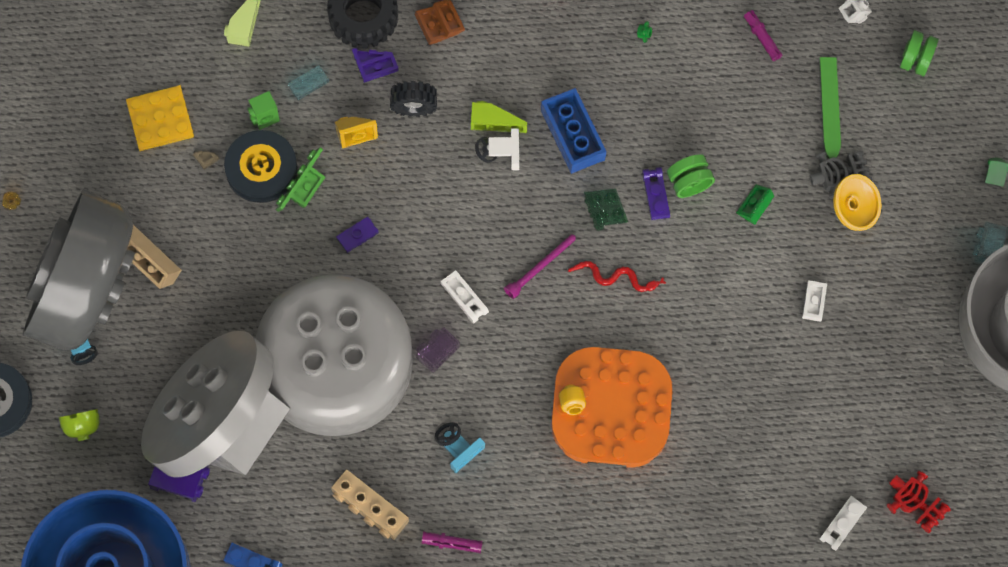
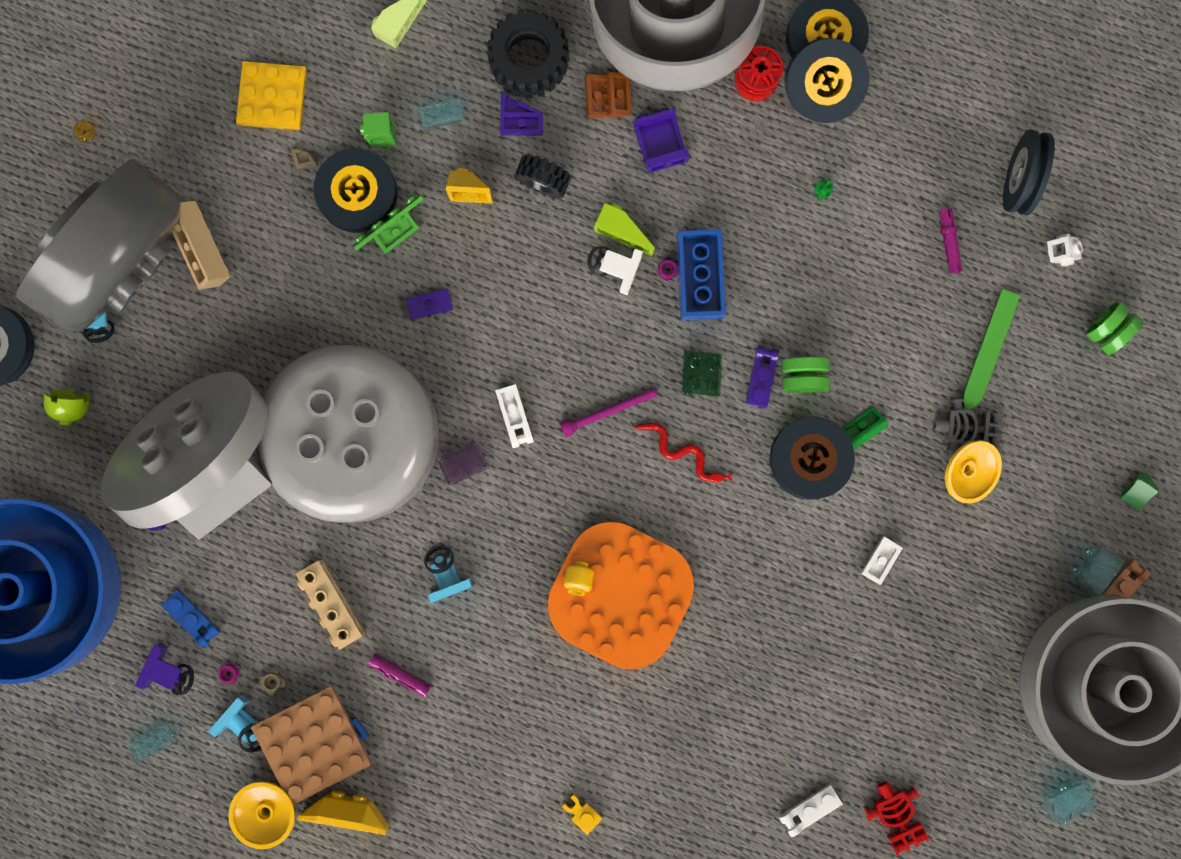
camera: 20 degrees right, 15 degrees up
(496, 41) = (660, 140): none -> dark purple panel
(544, 133) = (662, 269): none -> magenta plate
(739, 231) = (836, 464): none -> black wheel

